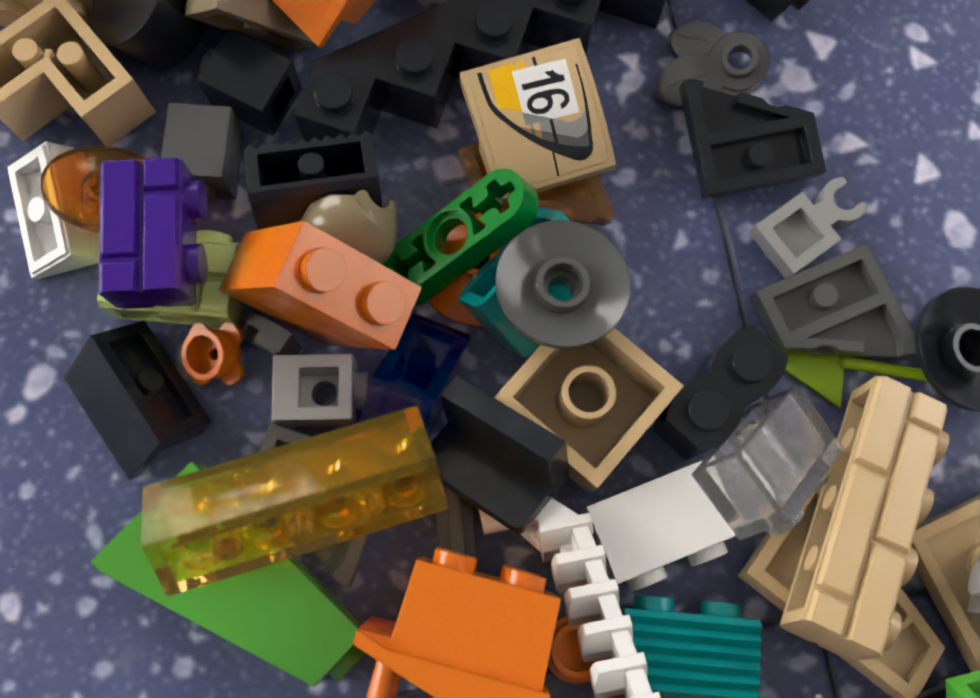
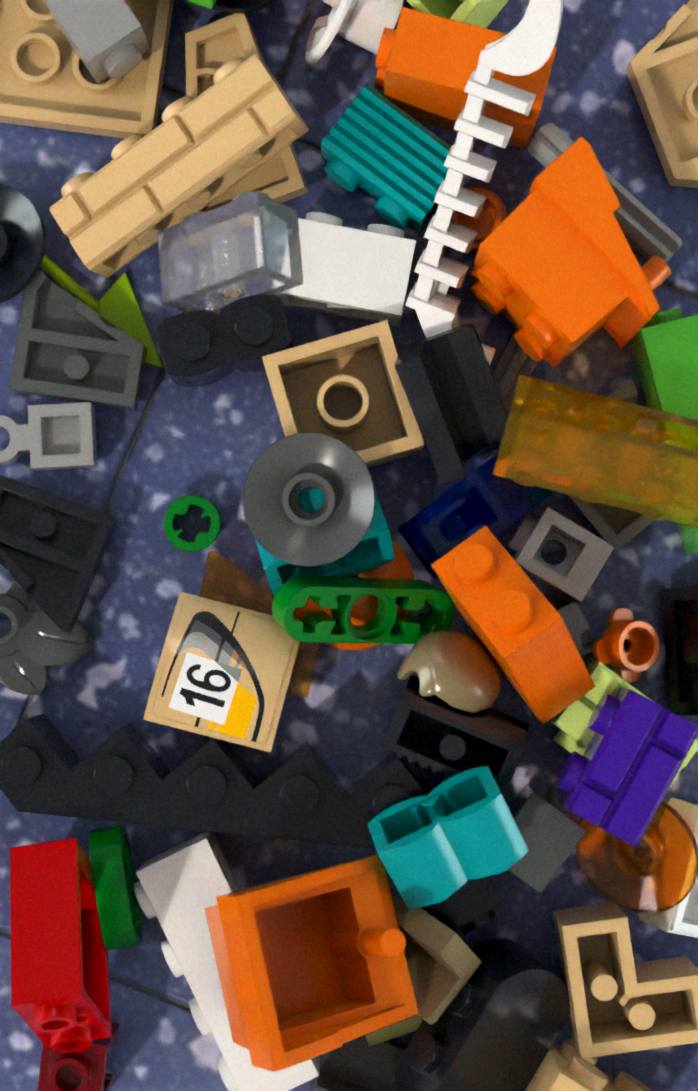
camera: 140 degrees left, 10 degrees up
(269, 84) = (447, 838): none -> teal brick
(660, 240) = (181, 507): none -> green bush

